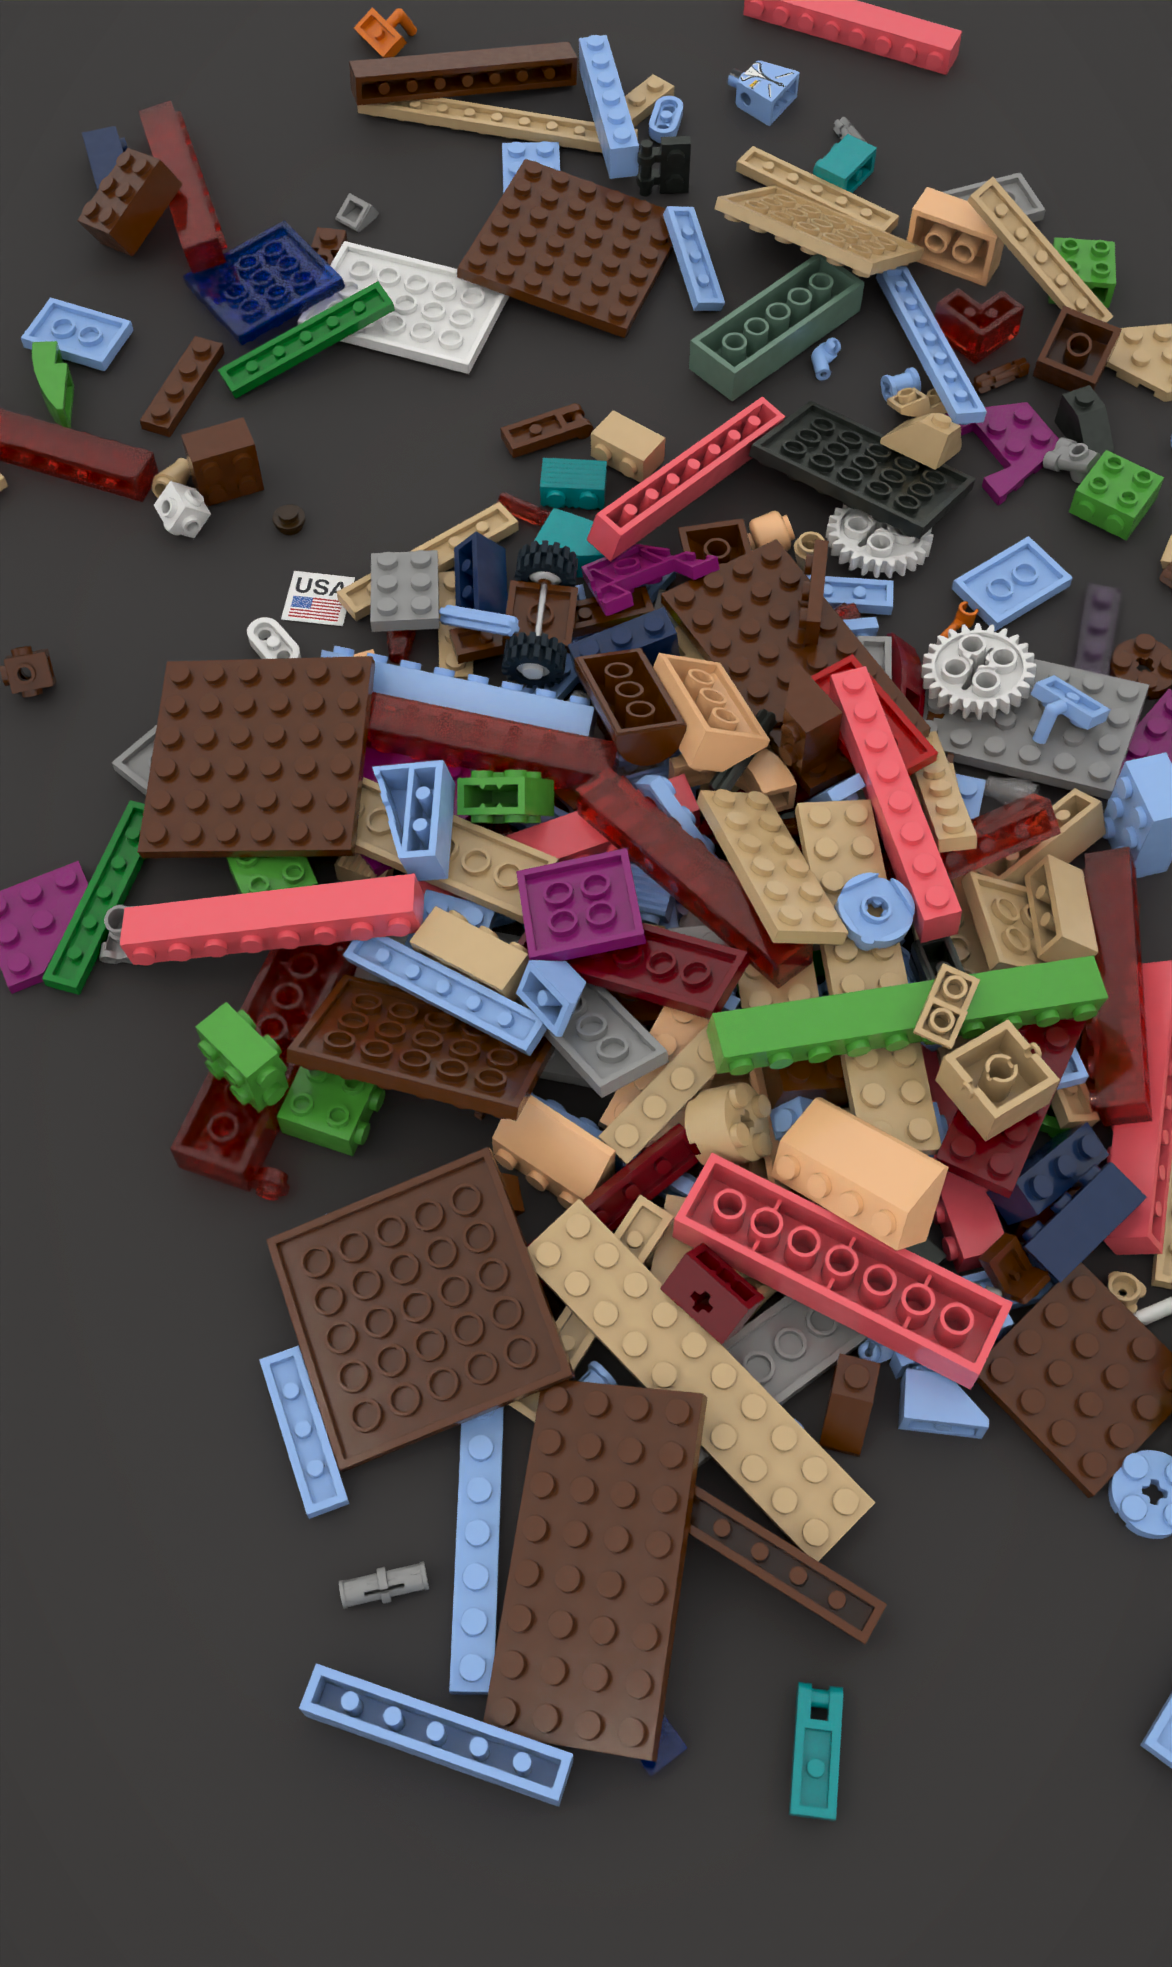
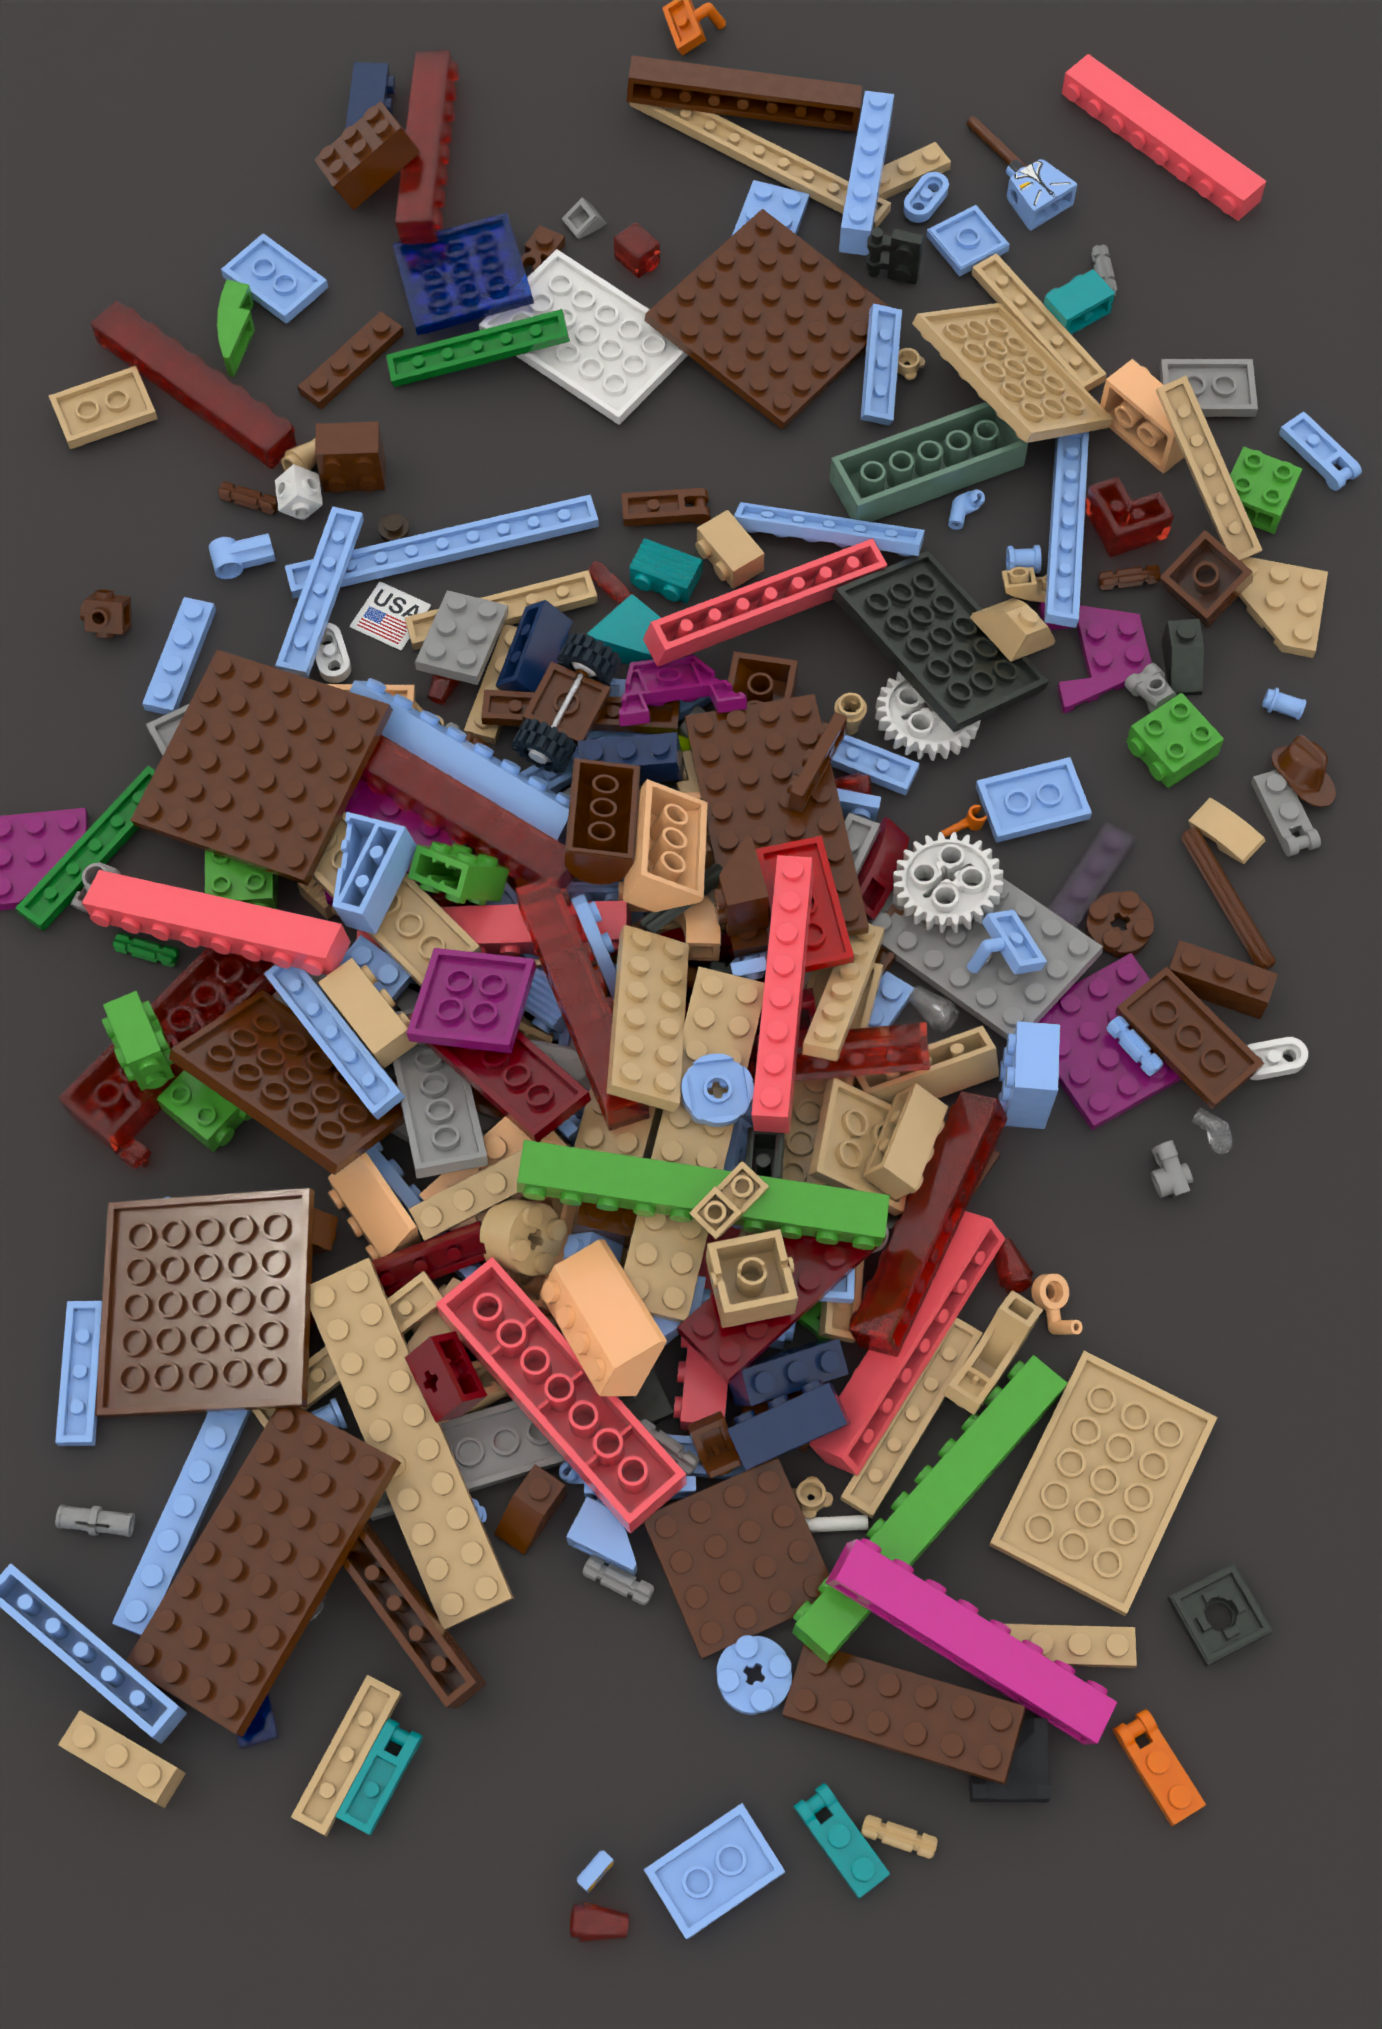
camera: 20 degrees right, 5 degrees up
(118, 693) = (179, 656): none -> light blue plate
(130, 531) = (248, 497): none -> reddish brown axle
(138, 586) = (233, 556): none -> light blue piece
(198, 978) = (146, 949): none -> green axle
(243, 584) = (320, 592): none -> light blue plate
(341, 522) = (459, 542): none -> light blue plate
(420, 224) = (637, 250): none -> clear red brick
(479, 620) = (509, 691): light blue axle -> none
(525, 1840) = (122, 1759): none -> tan brick
(551, 992) = (414, 1071): light blue slope -> none
(701, 63) = (992, 141): none -> reddish brown bar
(718, 253) = (914, 361): none -> tan plate
(721, 143) = (967, 239): none -> light blue plate
(723, 405) = (827, 528): none -> light blue plate
(769, 528) = (825, 679): light nougat head -> none
(771, 1742) = (346, 1755): none -> tan plate
(970, 1446) = (618, 1580): none -> light grey axle
(1094, 1765) = (595, 1871): none -> light blue tile
(1108, 226) = (1320, 450): none -> light blue plate
(1120, 1822) = (597, 1923): none -> clear red cone

